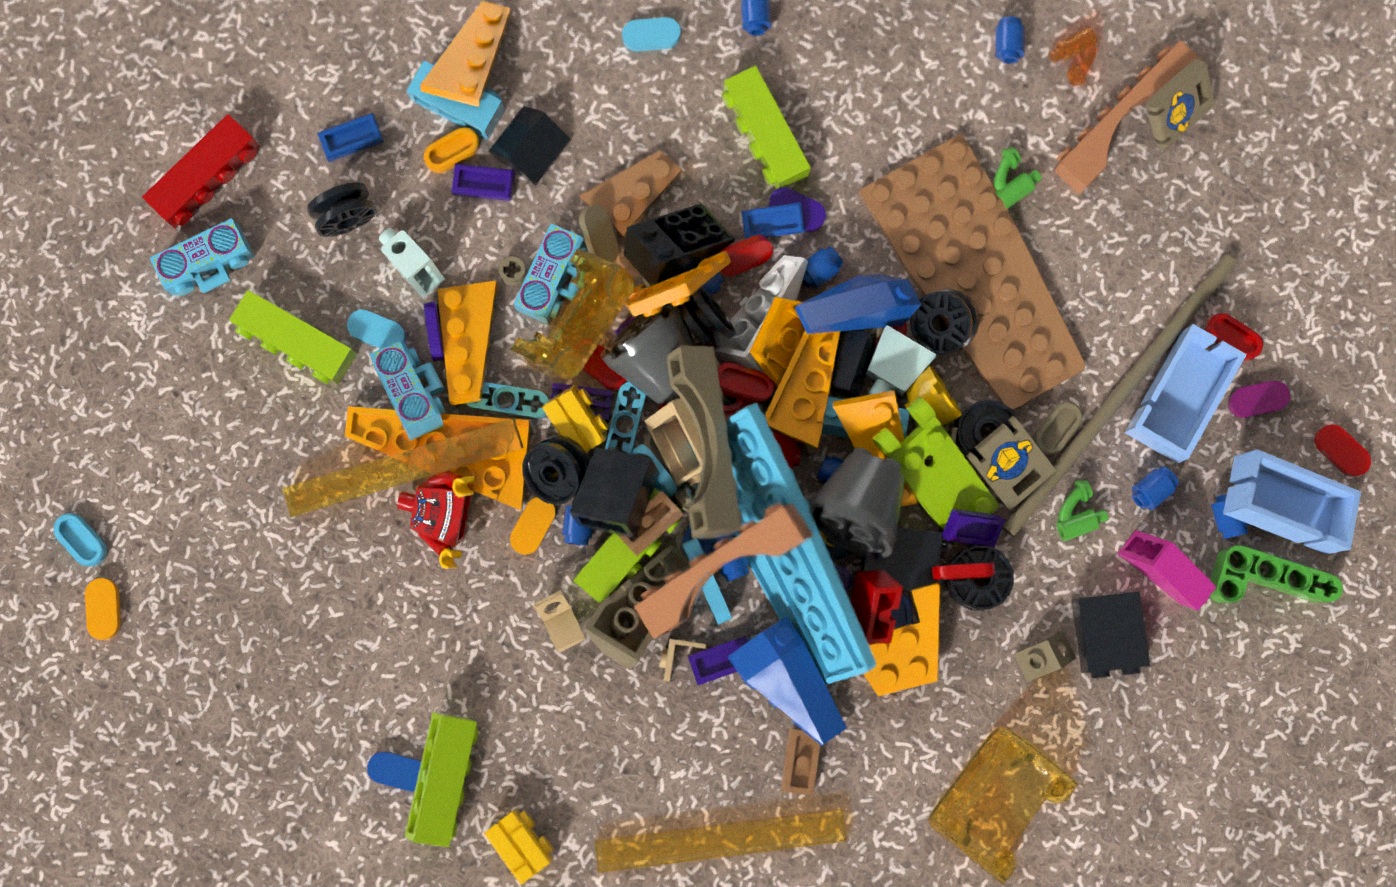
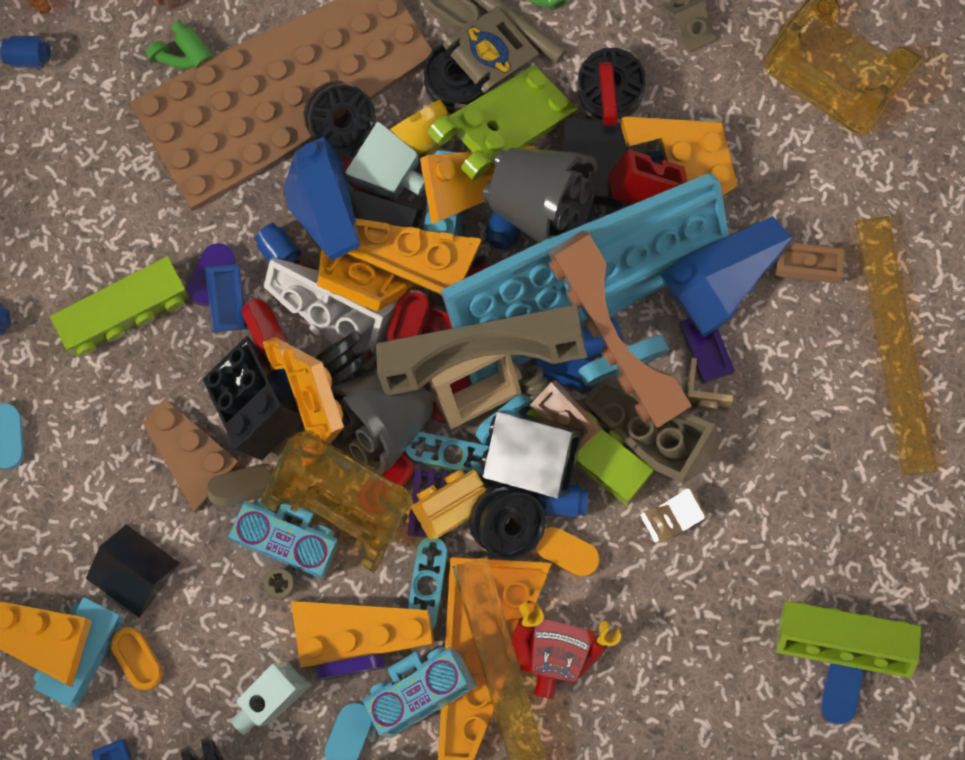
camera: 85 degrees left, 5 degrees down
(483, 182) = (175, 621): dark purple tile -> none
(520, 845) = (913, 553): yellow brick -> none
(973, 528) = (560, 87): dark purple tile -> none

